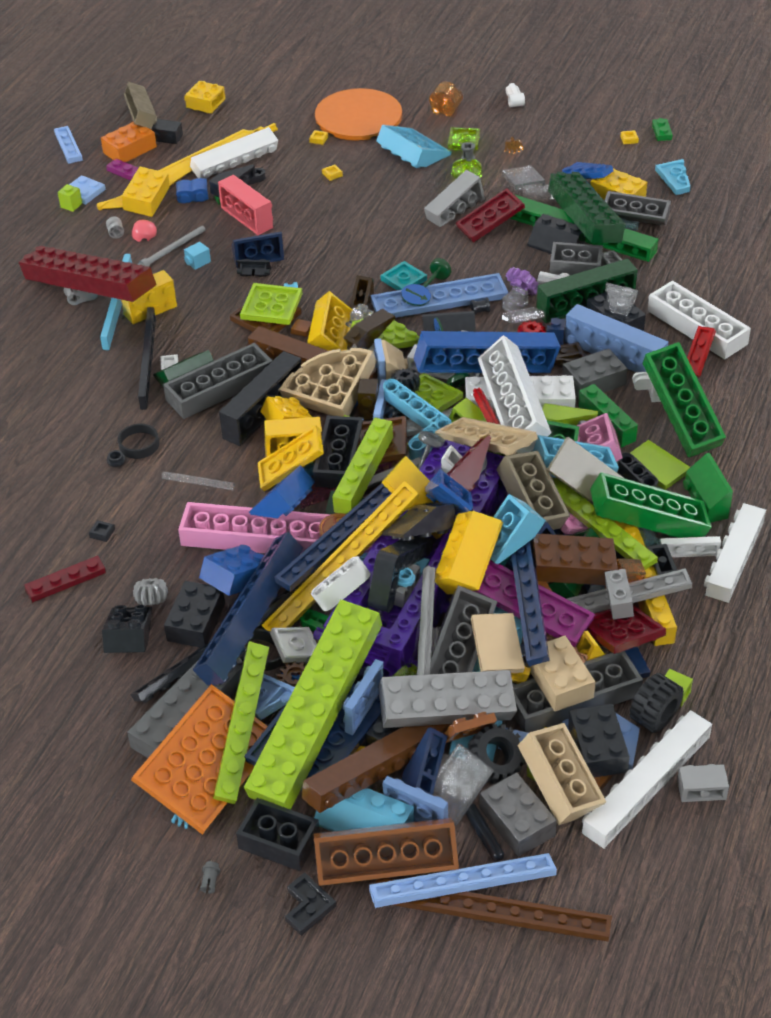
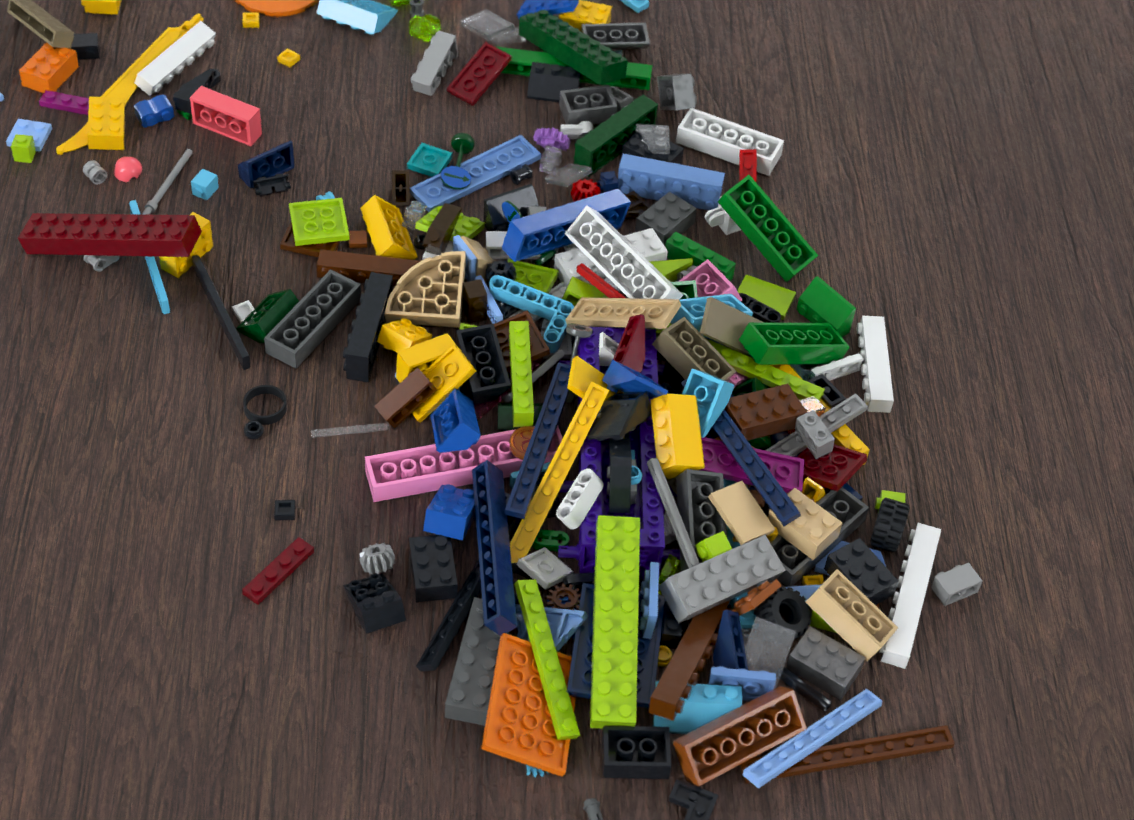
camera: 30 degrees left, 5 degrees up
(255, 463) = (405, 398): none -> reddish brown brick
(450, 663) = (713, 546): none -> lime brick
(664, 263) = (676, 91): none -> flat silver brick

